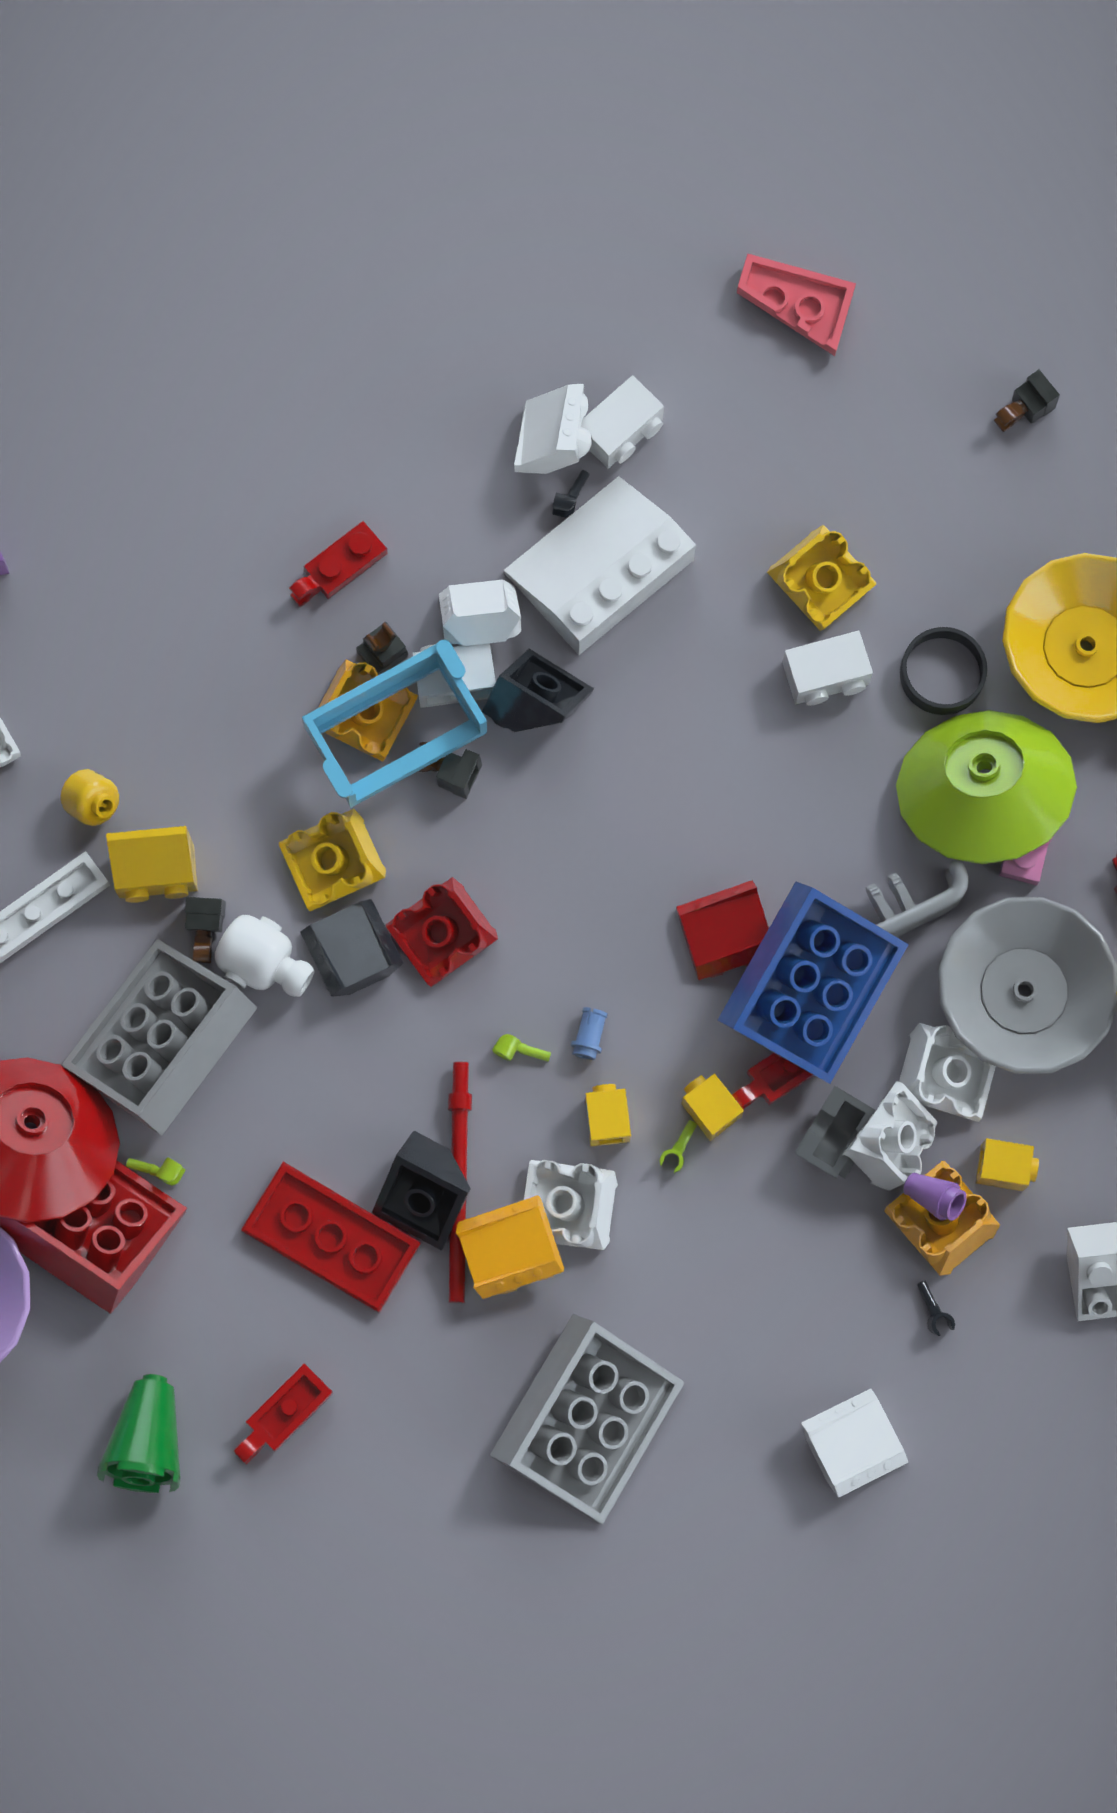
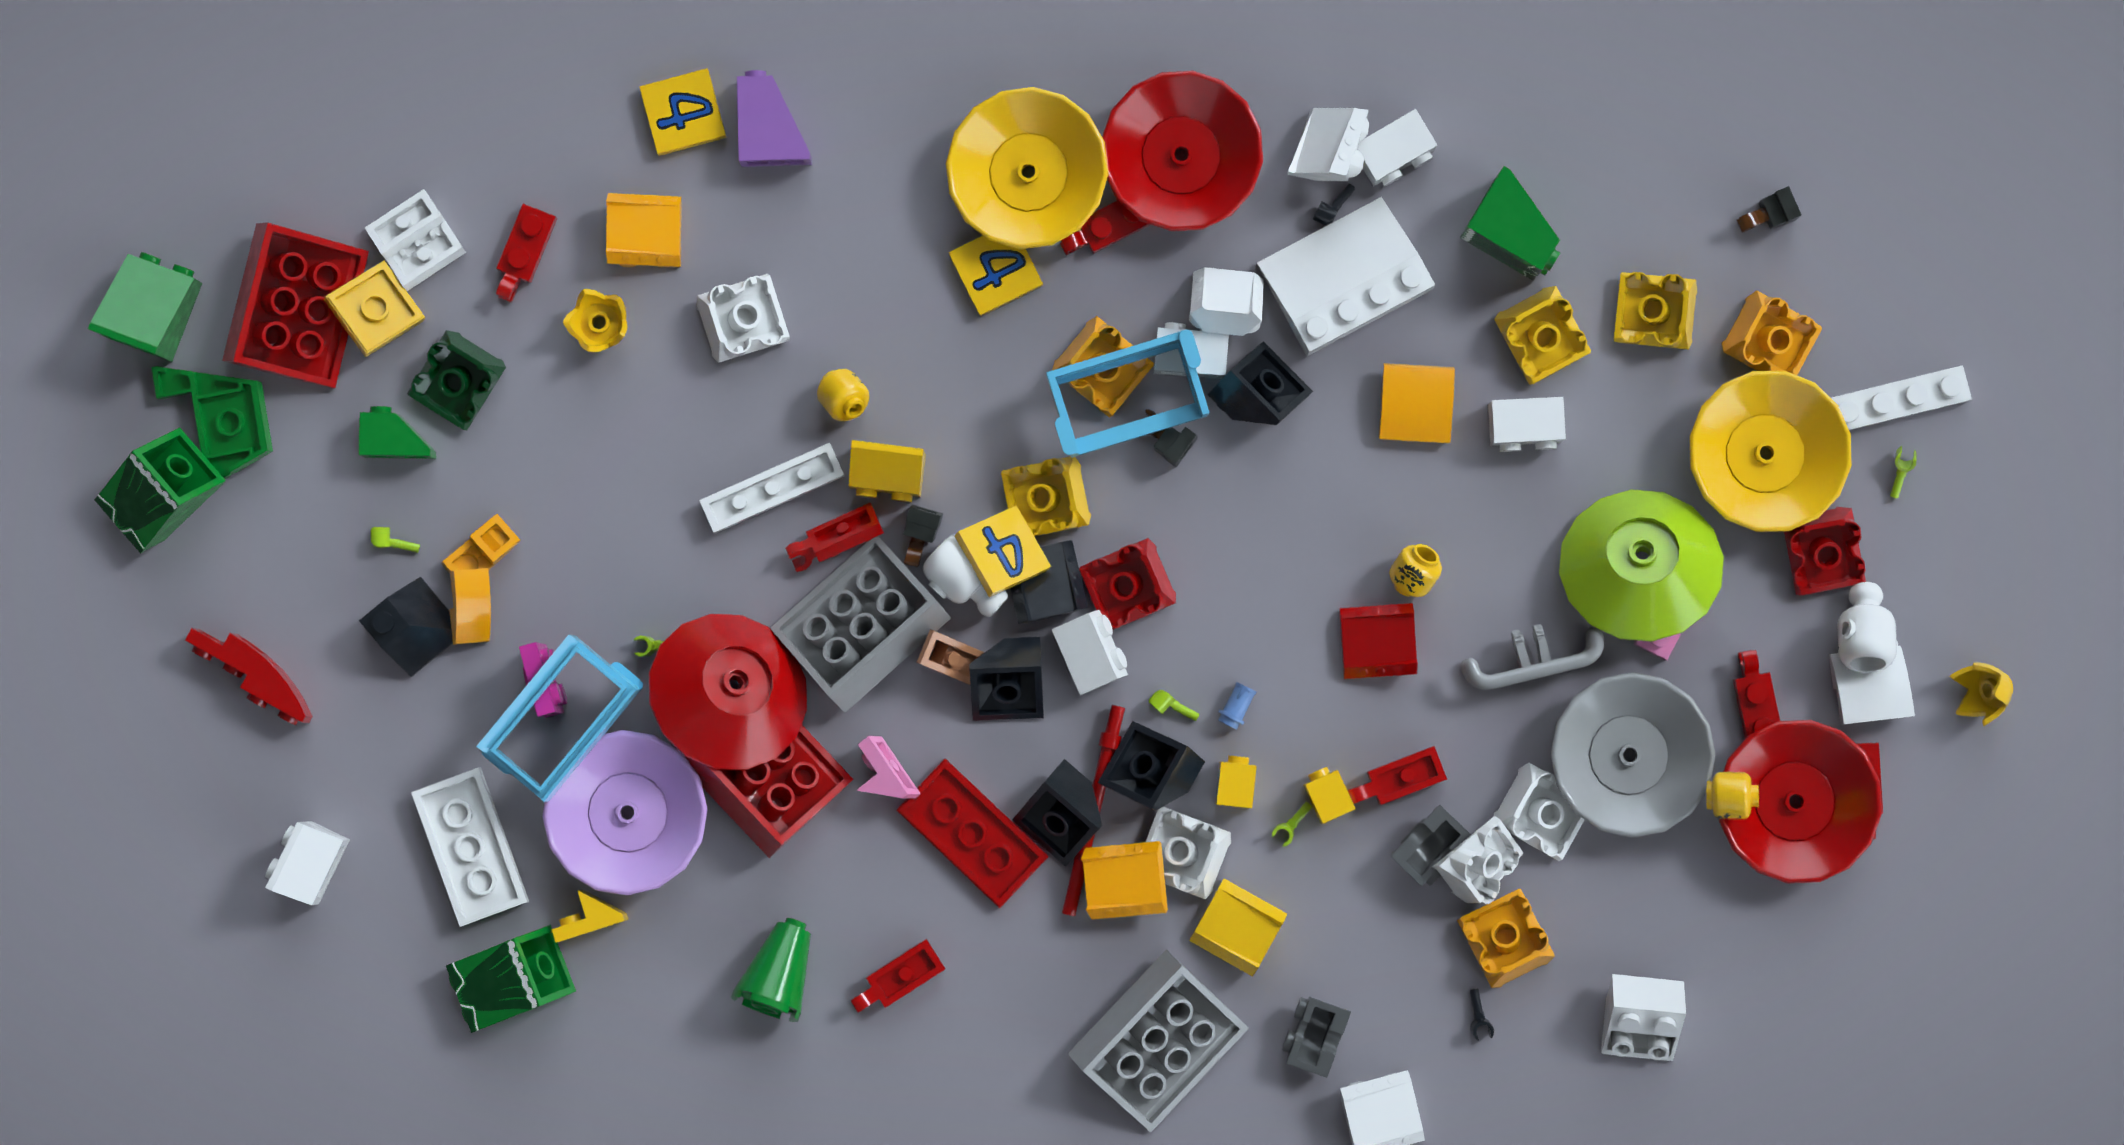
camera: 15 degrees right, 10 degrees up
(112, 950) = (835, 537): none -> red plate
(169, 1172) = (844, 745): lime hand -> none
(224, 1194) = (890, 776): none -> bright pink slope
(227, 635) = (994, 273): none -> yellow tile
(231, 485) = (1022, 131): none -> yellow dish
(265, 1049) = (948, 656): none -> nougat slope
(297, 920) = (1002, 551): none -> yellow tile
(333, 1062) = (1008, 681): none -> black slope
(382, 649) = (1131, 314): pearl dark grey piece -> none
(388, 435) = (1187, 114): none -> red dish
(417, 1008) = (1090, 651): none -> white brick
(511, 1117) = (1151, 768): none -> black slope
(646, 1272) = (1238, 927): none -> yellow slope
(706, 675) = (1416, 403): none -> light orange slope
(747, 845) = (1415, 570): none -> yellow head
(760, 1369) = (1316, 1035): none -> dark grey cylinder
(763, 472) = (1513, 228): none -> green slope
(798, 298) = (1587, 64): coral wing -> none
(813, 981) = (1442, 710): blue slope -> none
(933, 526) = (1655, 310): none -> yellow slope
(937, 1196) = (1504, 921): medium lavender cone -> none
(947, 633) = (1666, 439): black tyre -> none
(1006, 1165) = (1573, 906): yellow brick -> none
(1059, 524) = (1771, 335): none -> light orange slope

